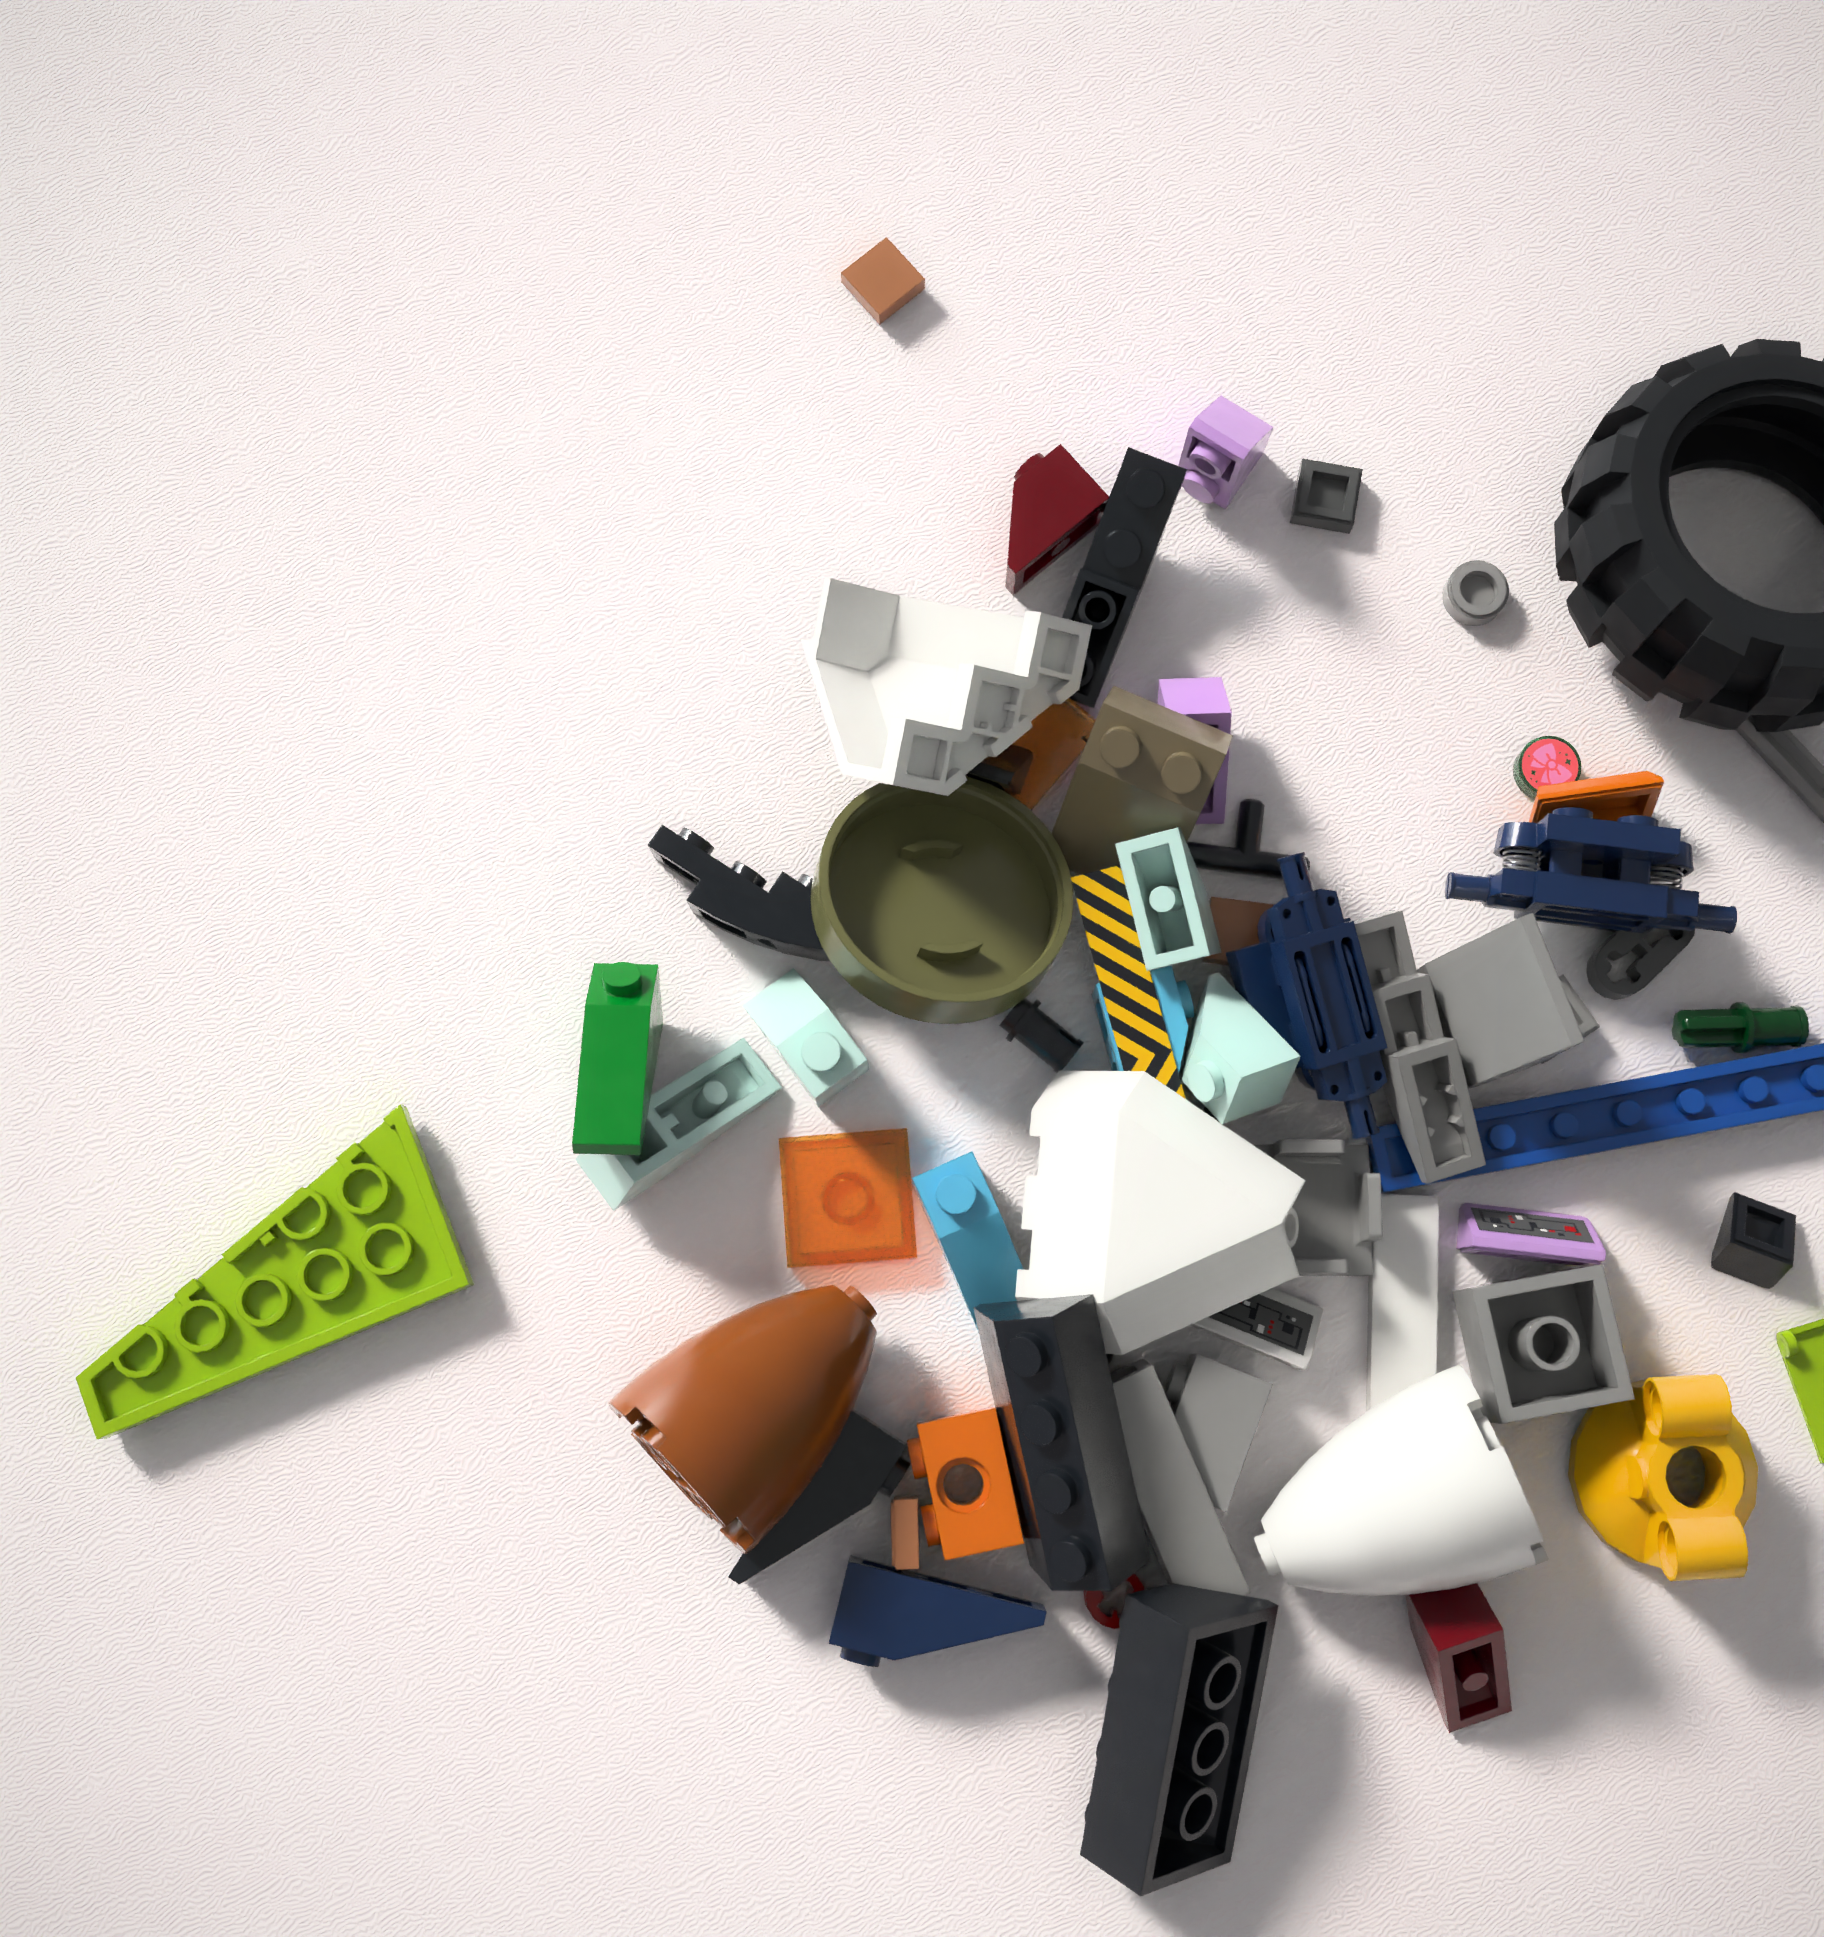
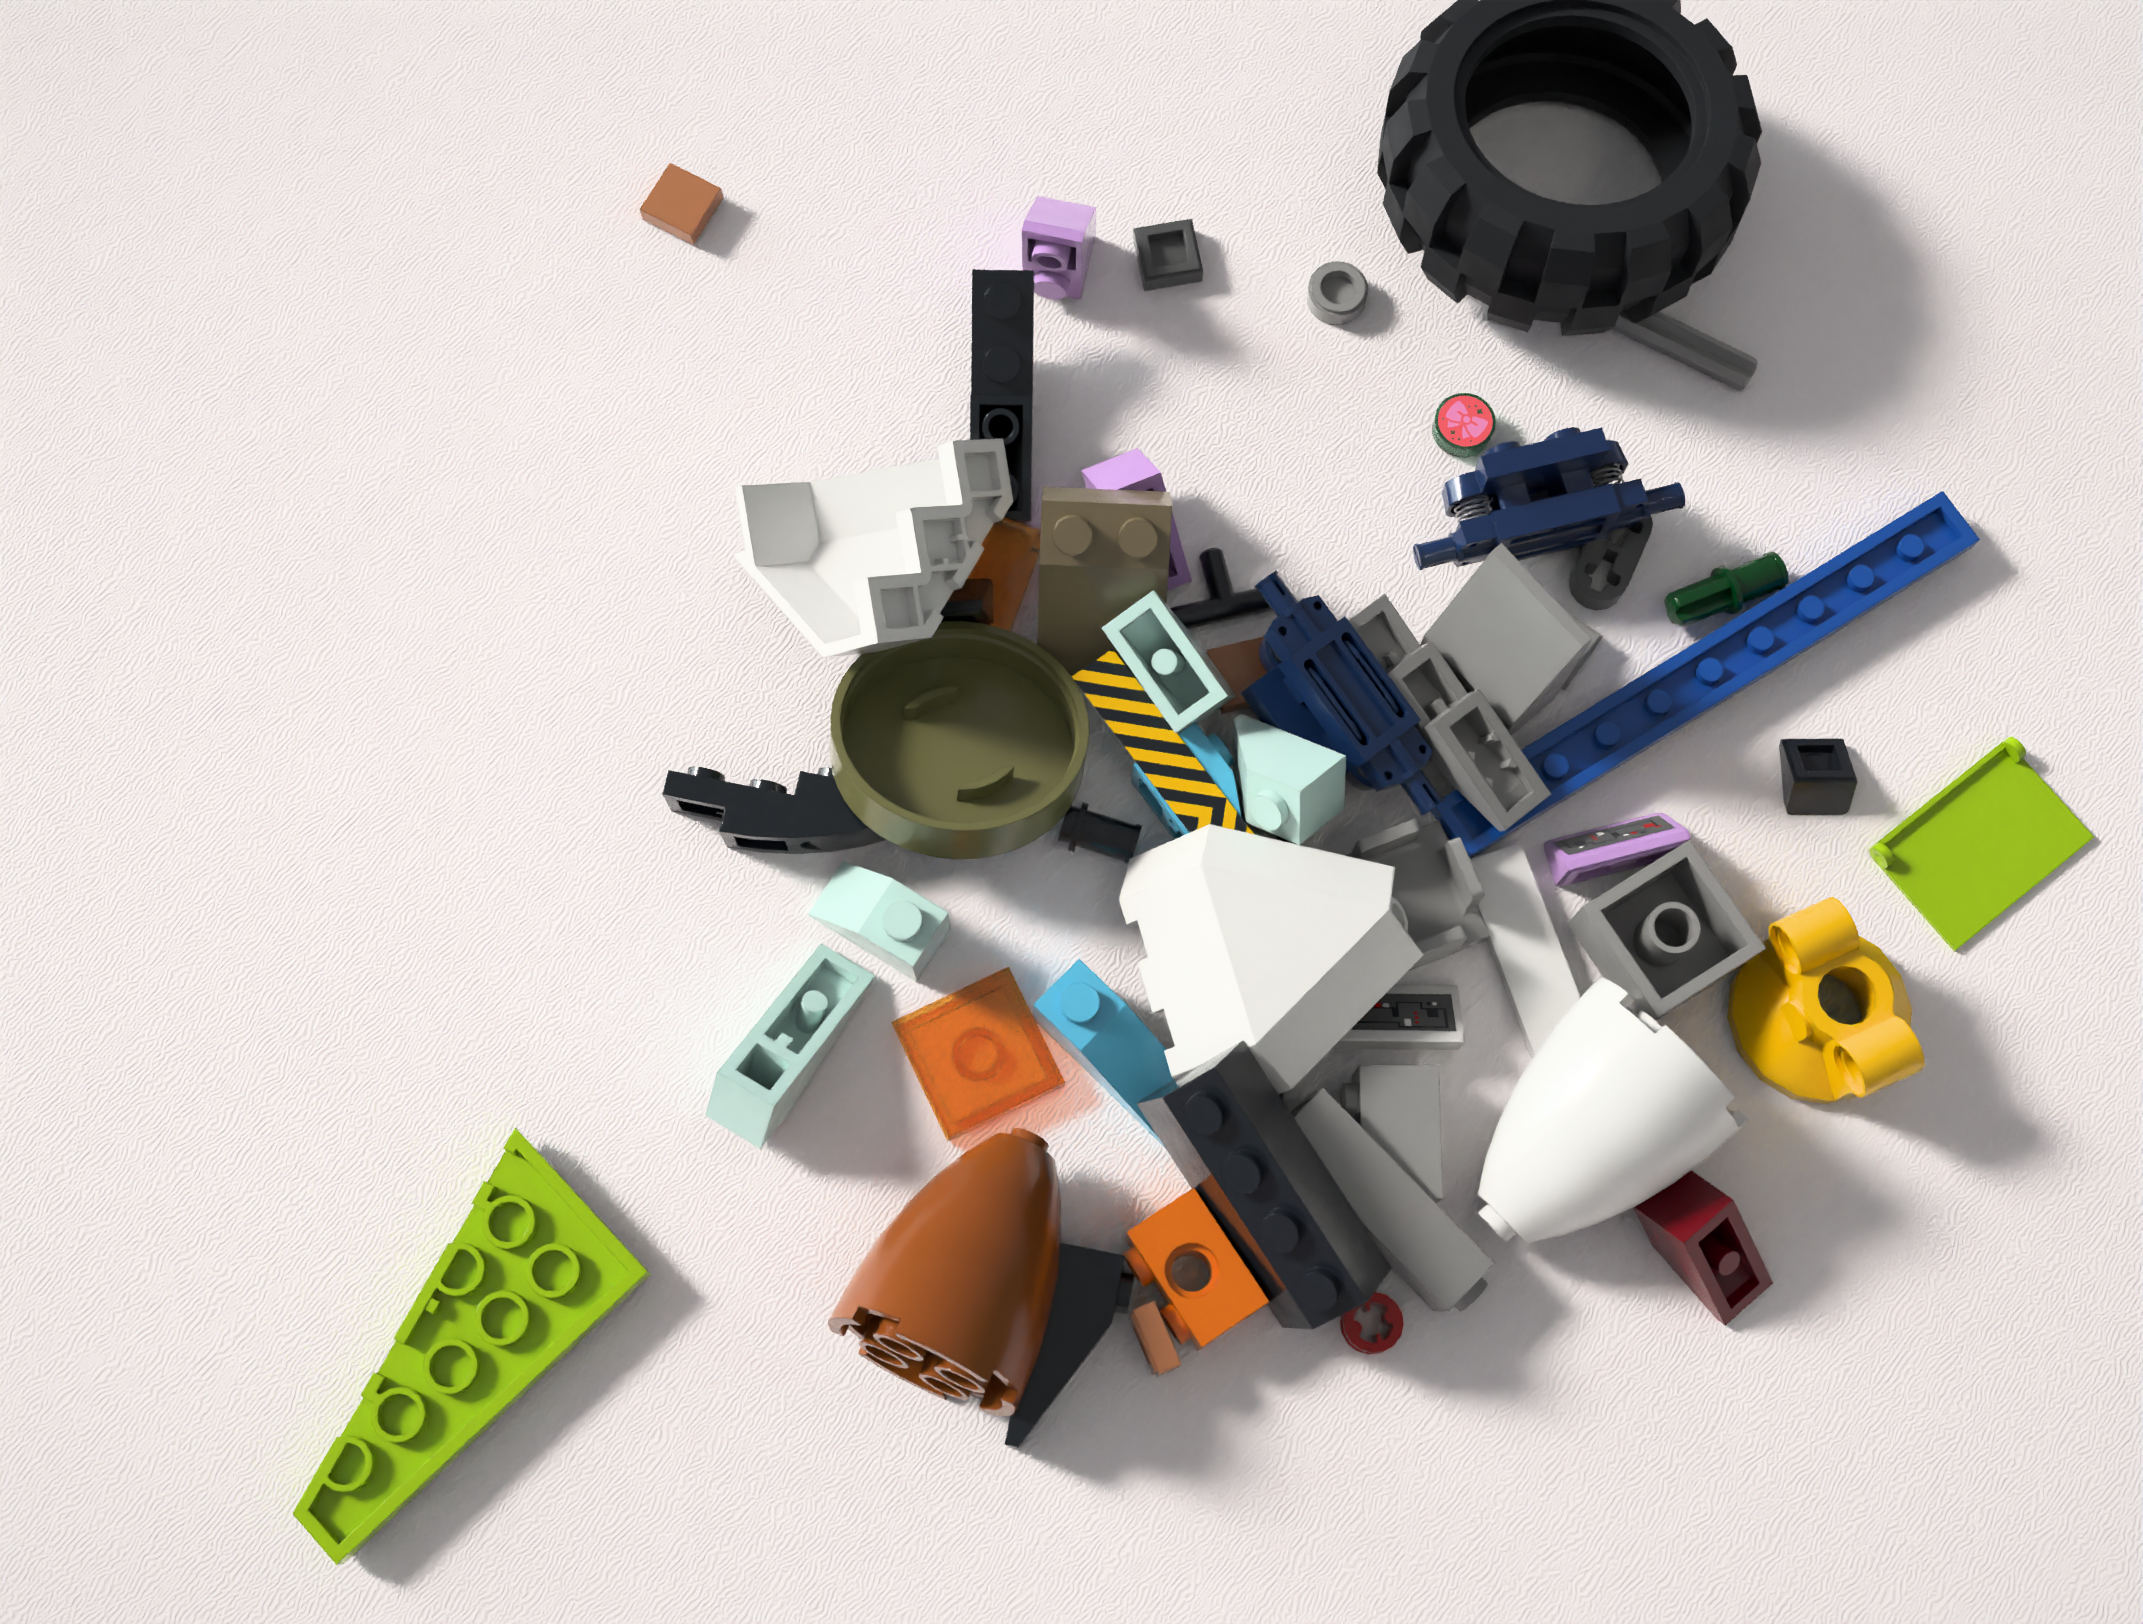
camera: 25 degrees left, 5 degrees down
(617, 1058) = (711, 999): green slope -> none
(916, 1613) = (1187, 1413): dark blue slope -> none
(1050, 513) = (920, 358): dark red slope -> none
(1177, 1734) = (1479, 1419): black slope -> none
(1604, 796) = (1525, 426): orange tile -> none

